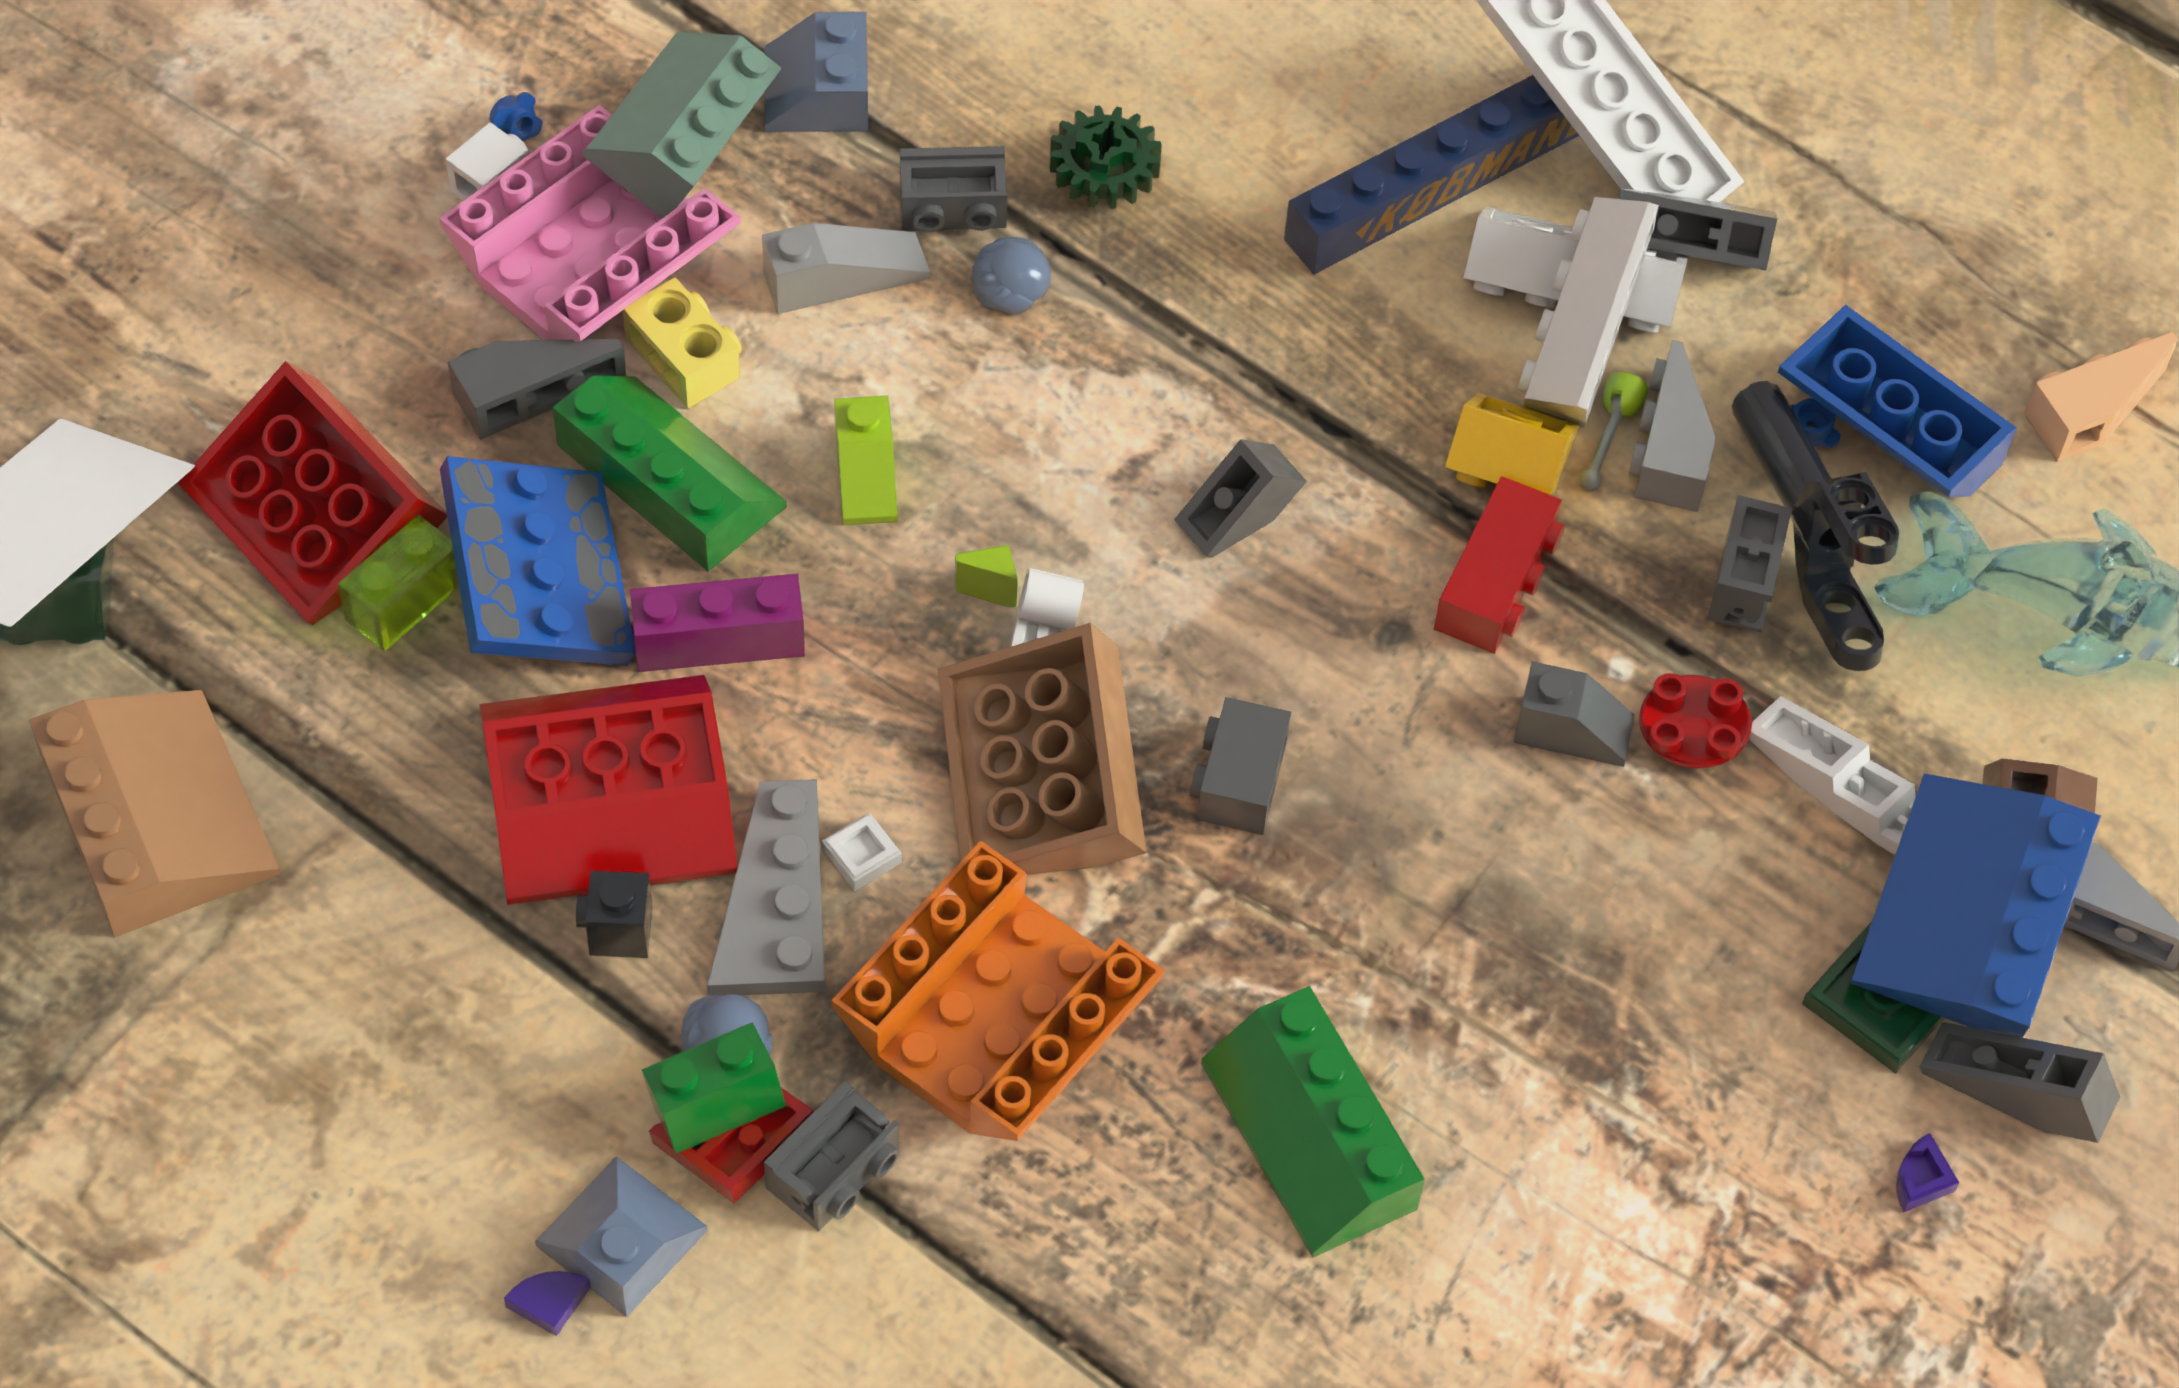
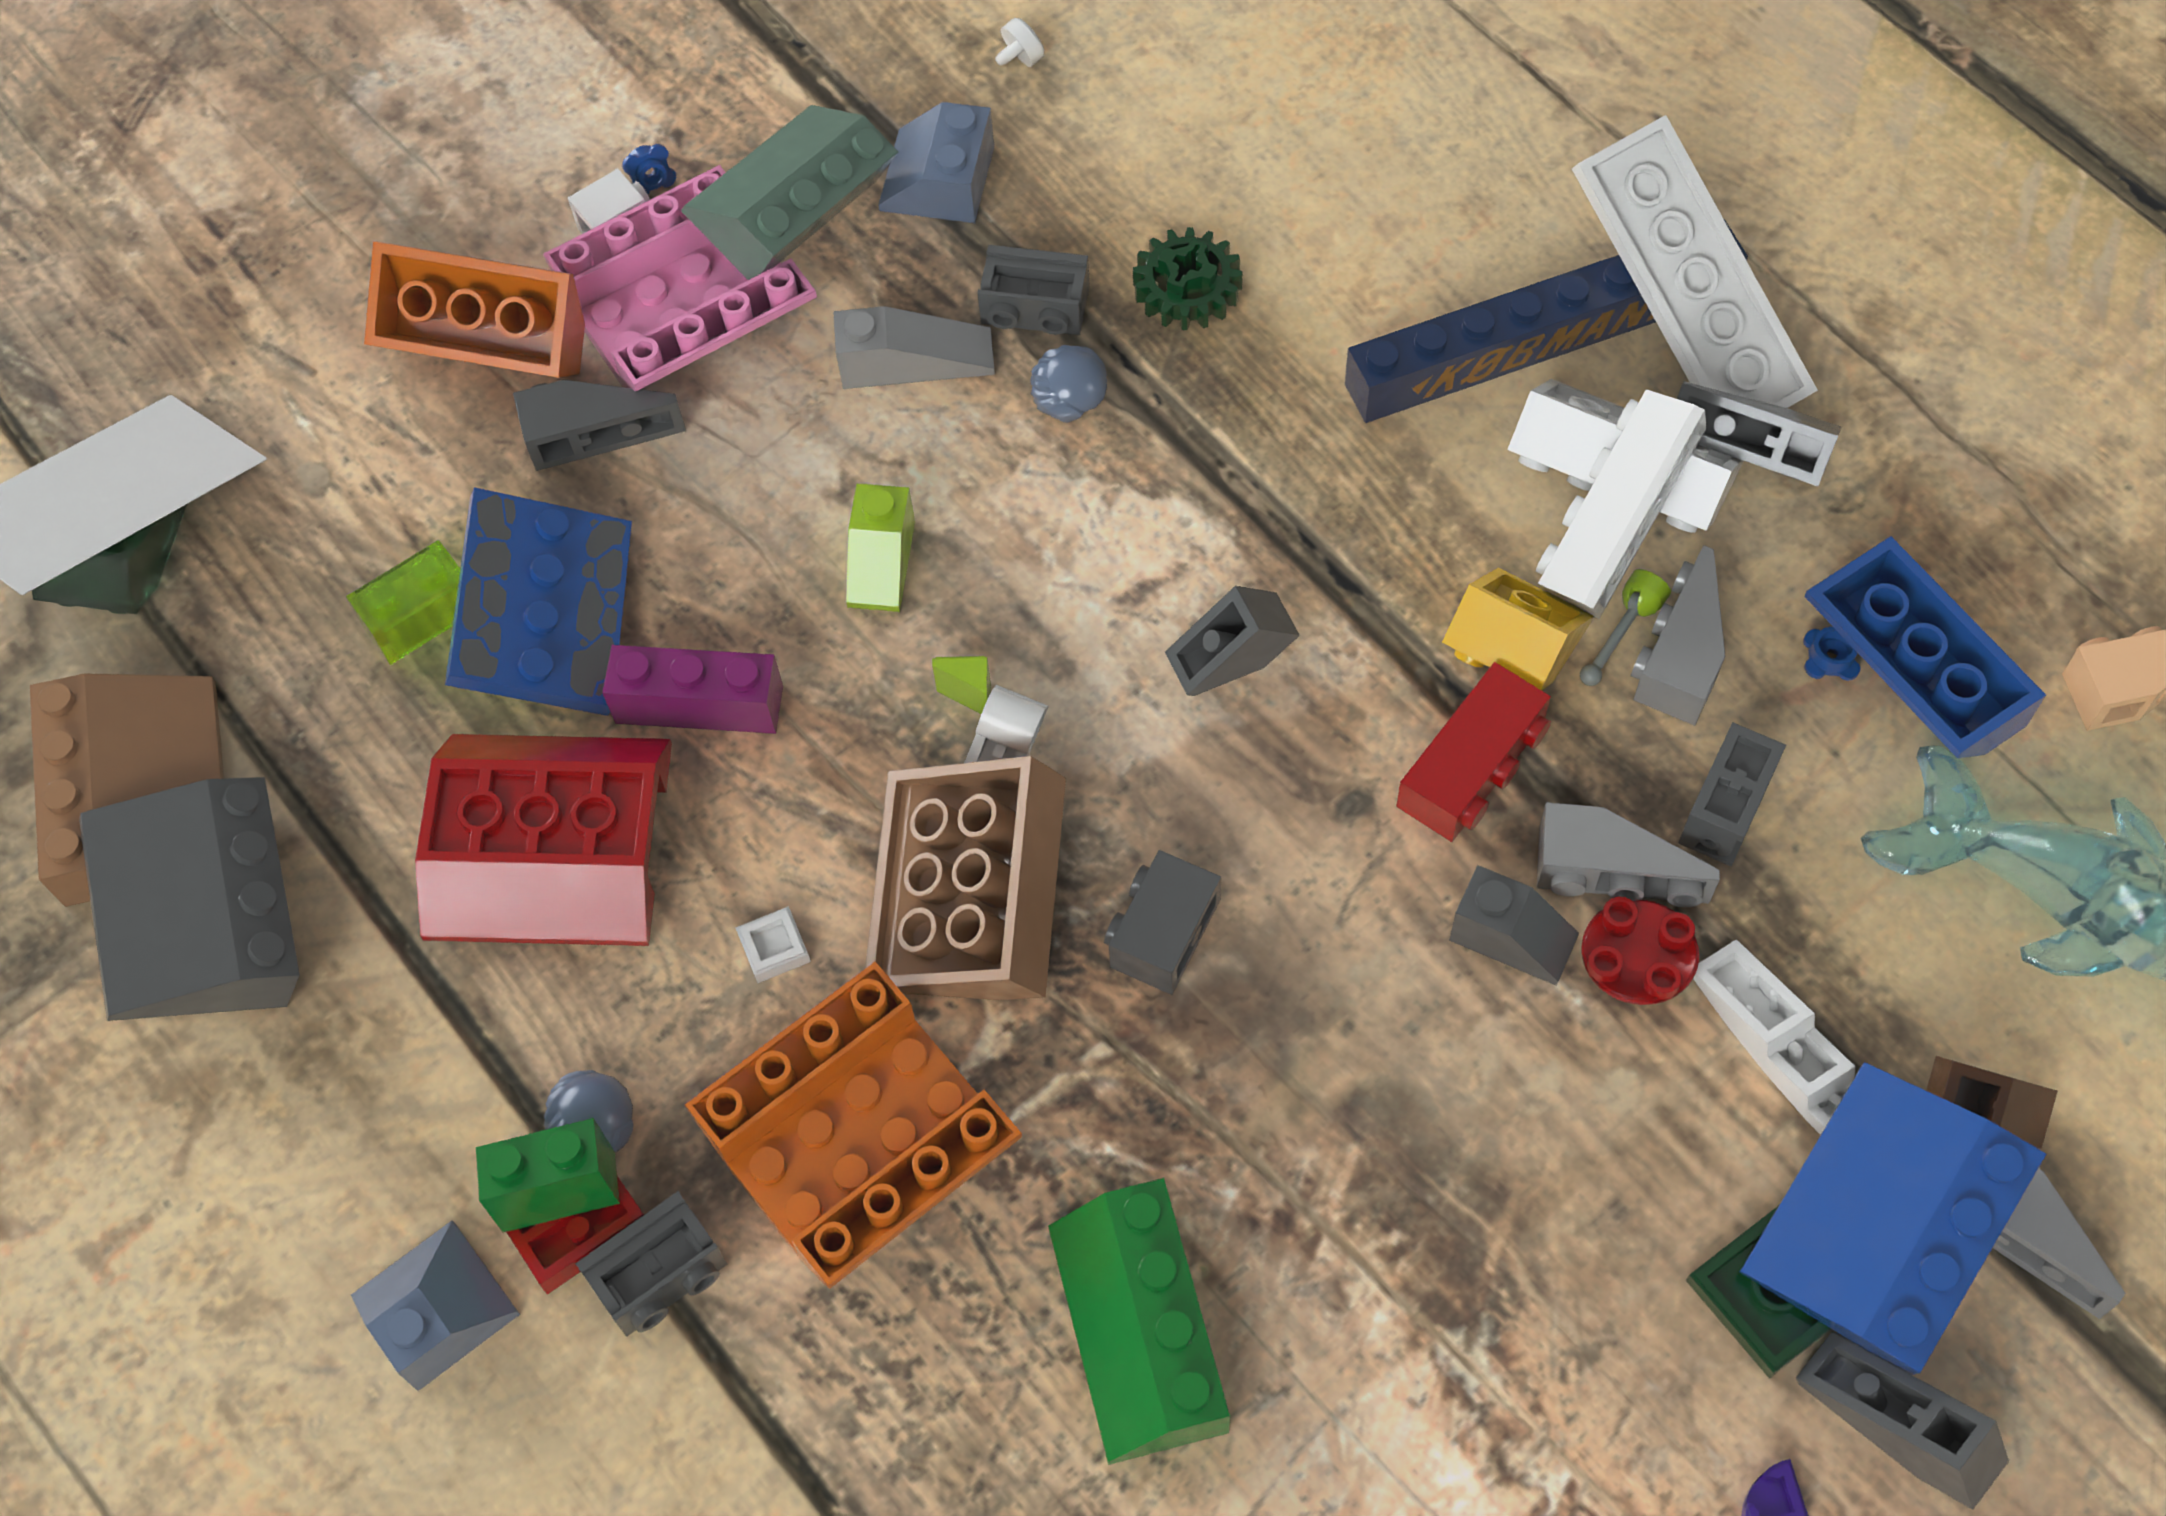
camera: 20 degrees right, 5 degrees up
(270, 898) = (189, 901): none -> dark grey slope
(305, 490) = (357, 494): red slope -> none
(384, 283) = (474, 310): none -> orange slope
(548, 1298) = (344, 1359): dark purple tile -> none
(616, 914) = (516, 971): black brick -> none
(664, 467) = (693, 523): green slope -> none
(673, 332) = (735, 406): light yellow brick -> none
(775, 906) = (676, 986): light grey wing -> none
(1644, 638) = (1606, 854): none -> light grey slope
(1825, 523) = (1818, 764): black piece -> none

